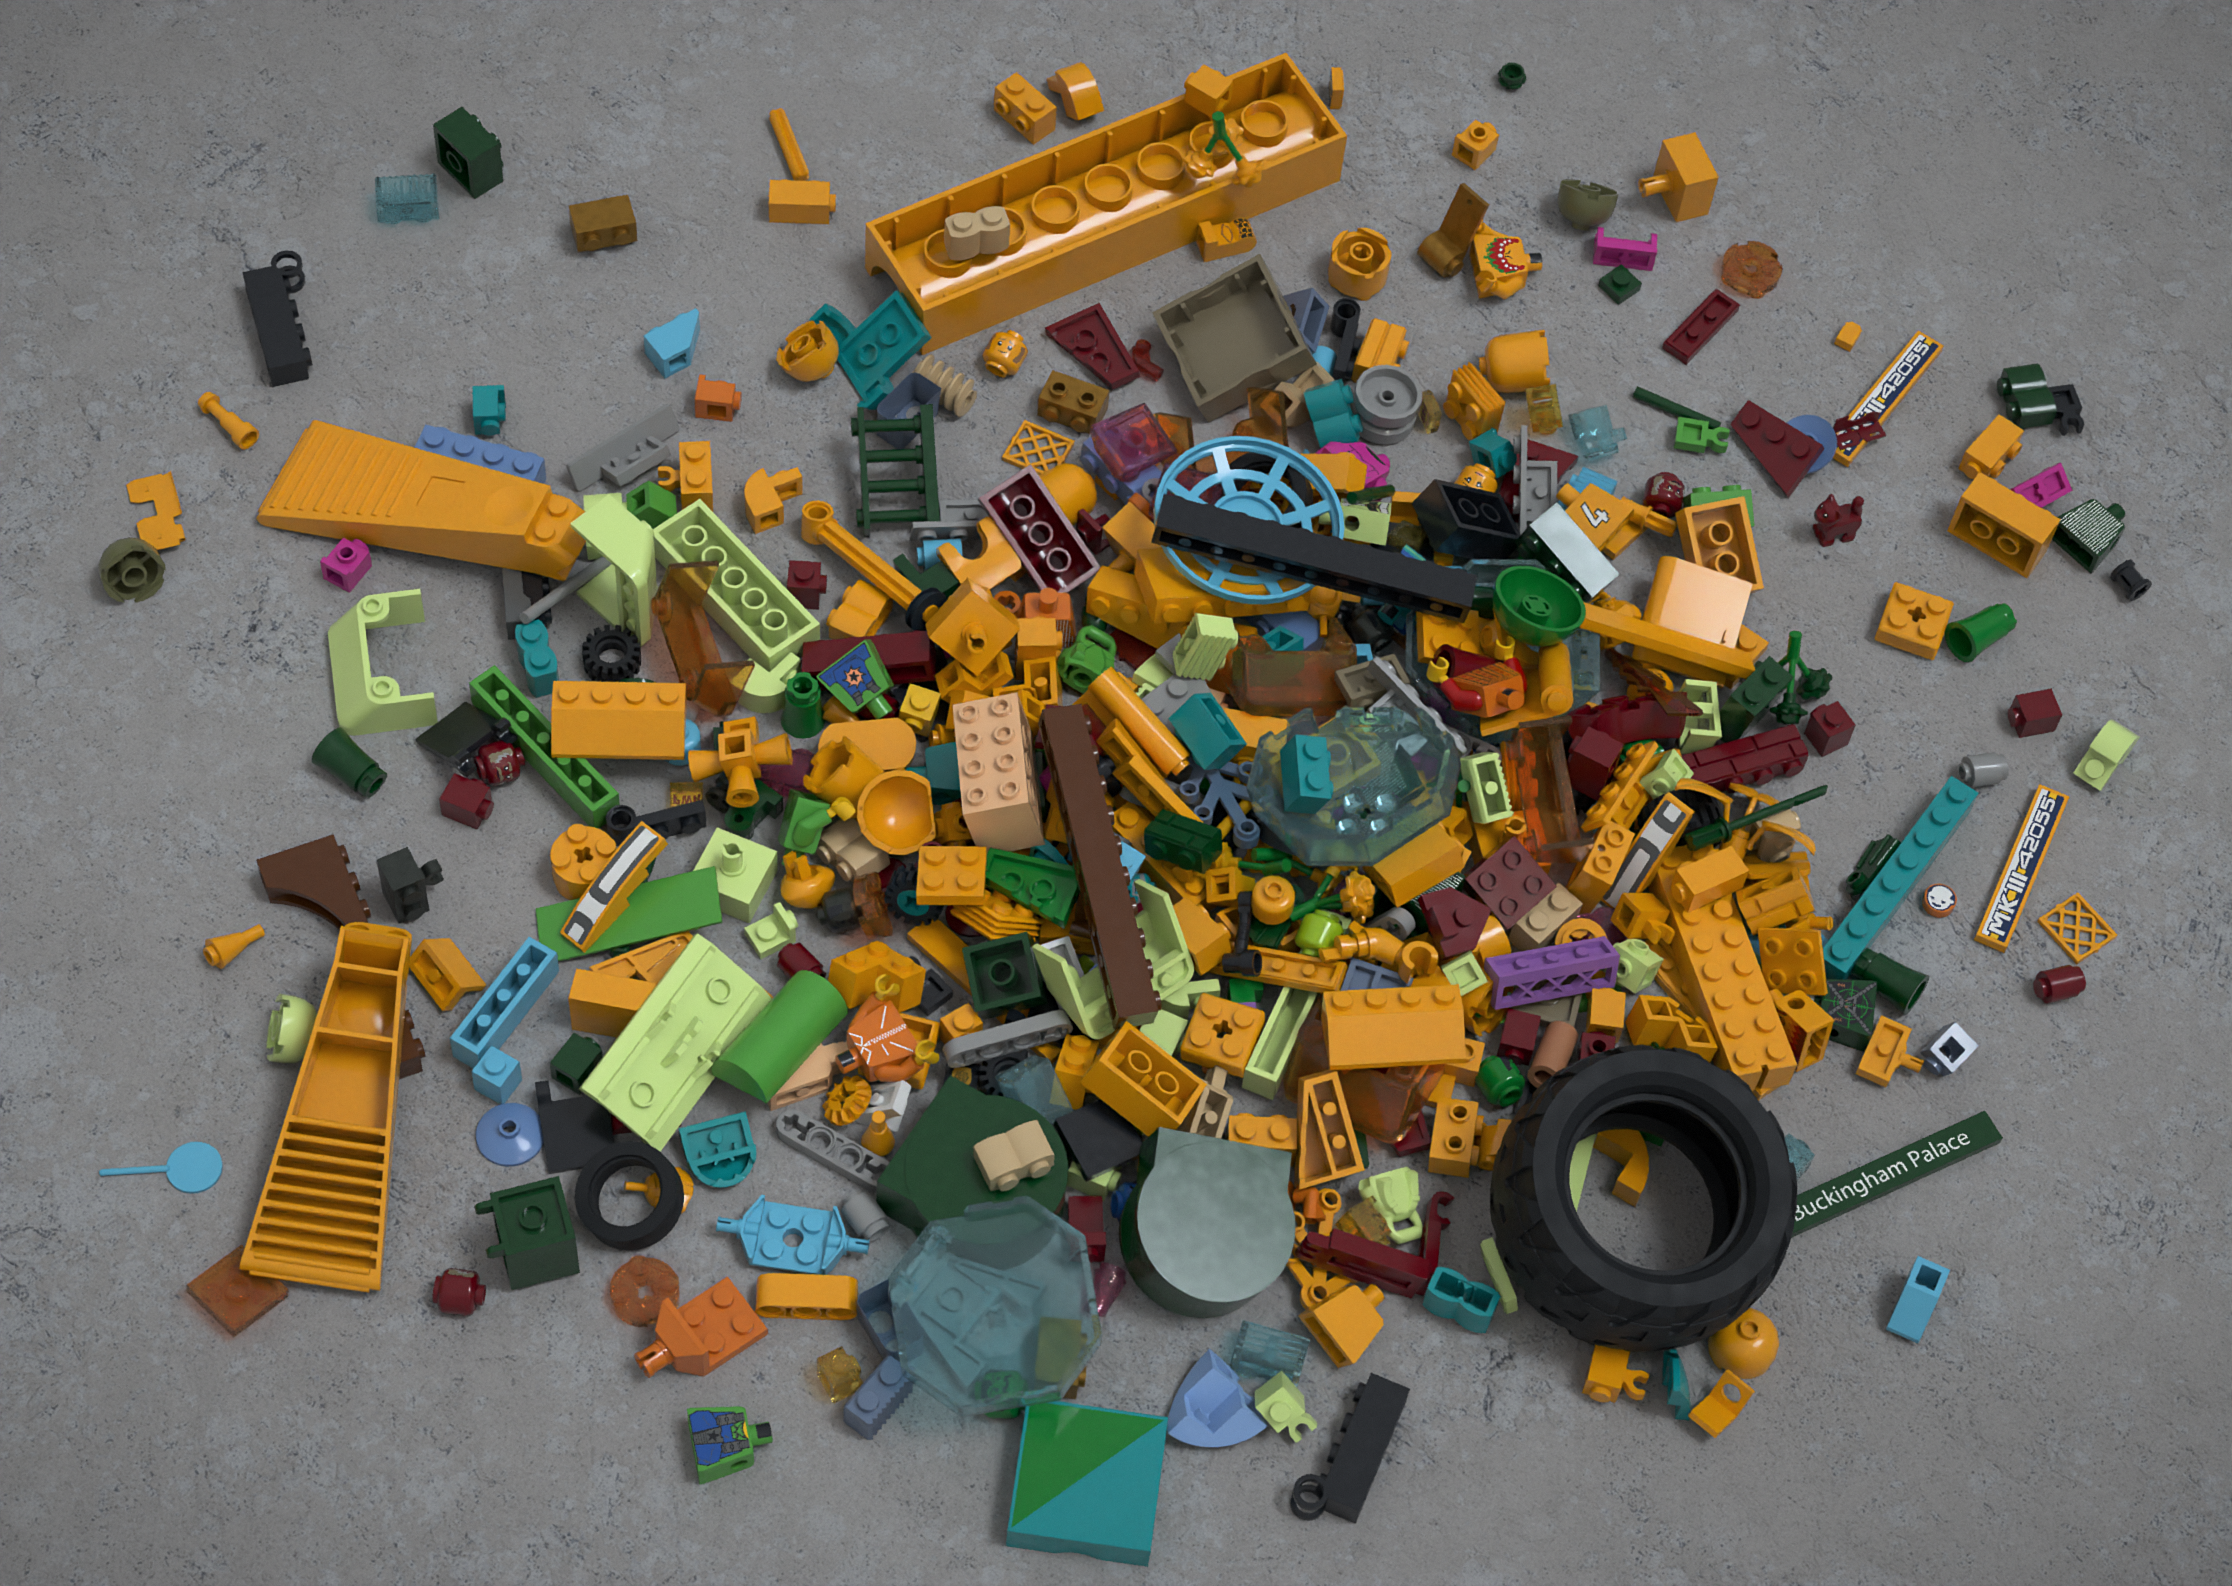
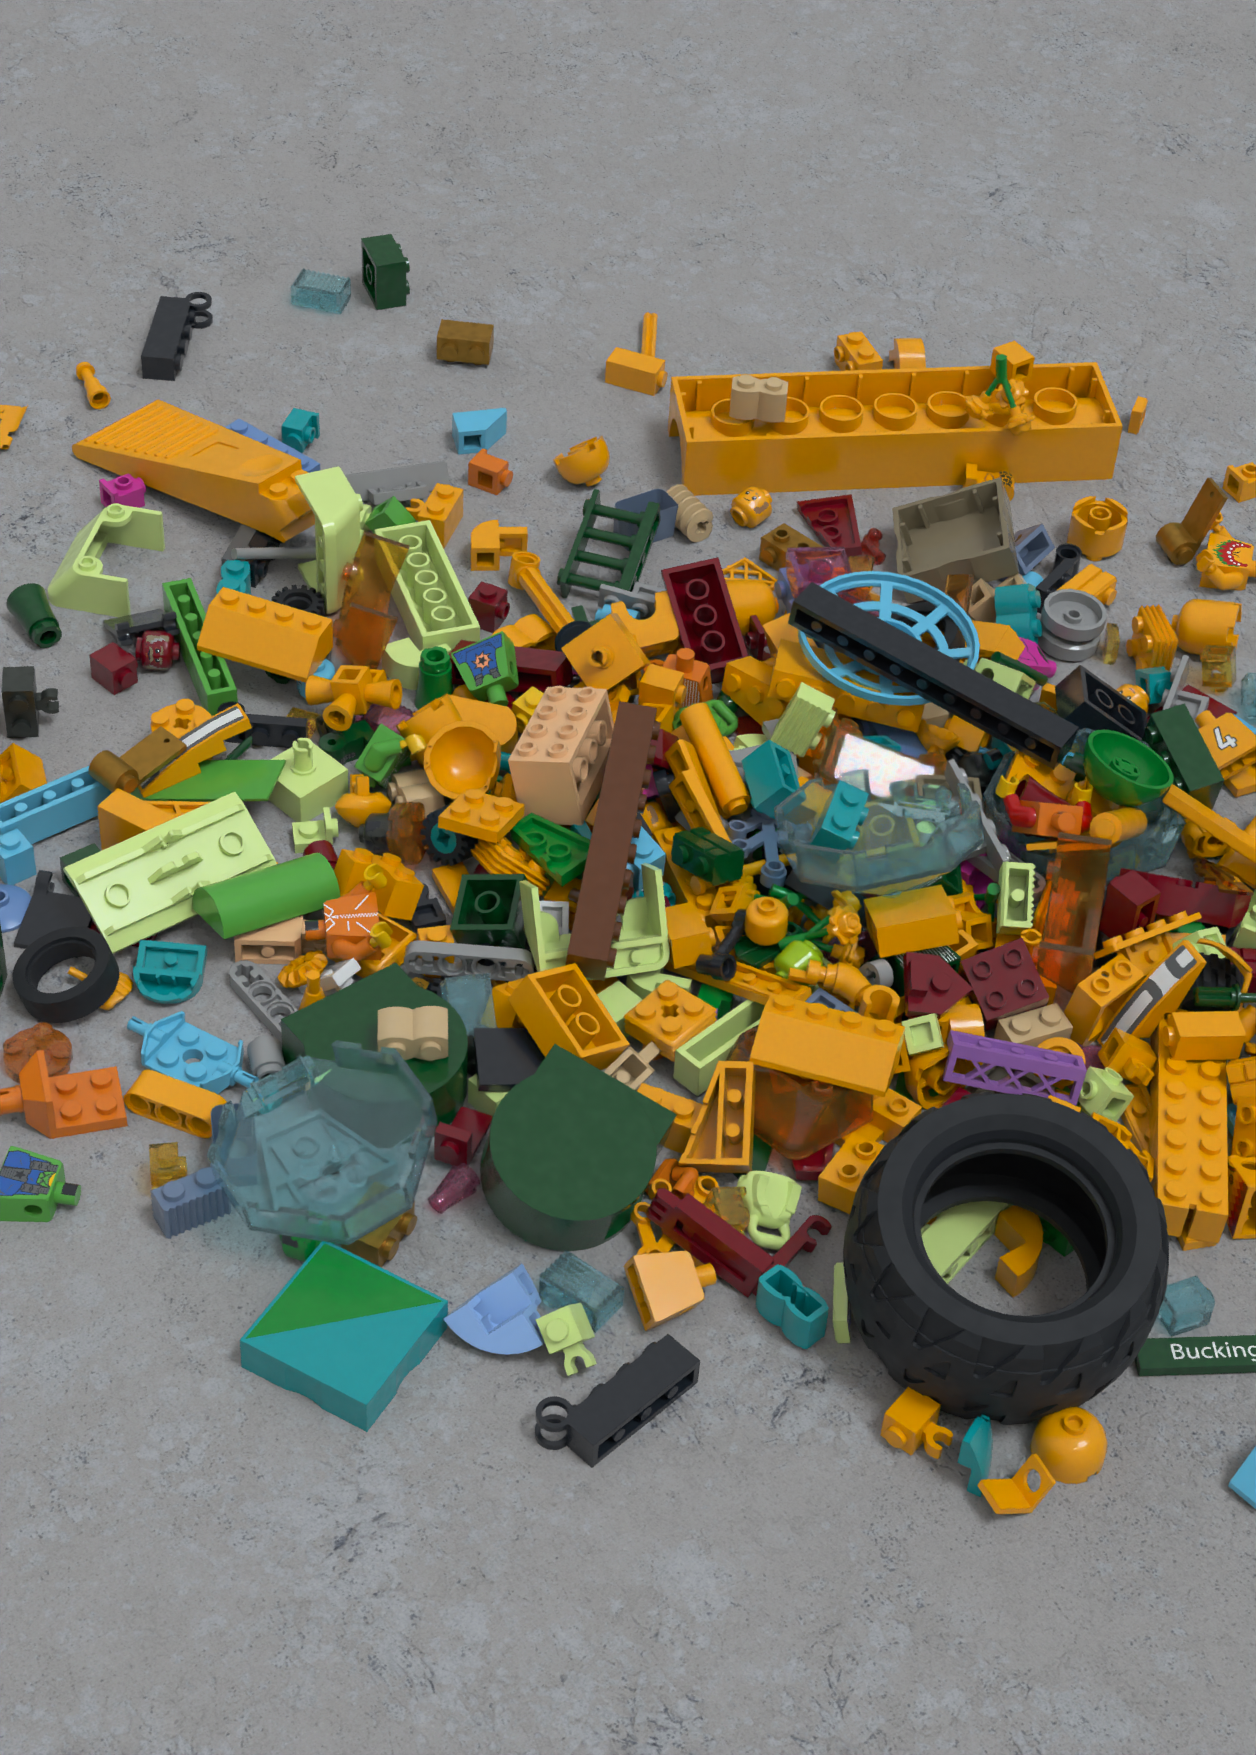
camera: 25 degrees right, 15 degrees down
(575, 924) = (137, 763): none -> pearl gold door
(876, 346) = (646, 468): teal piece -> none

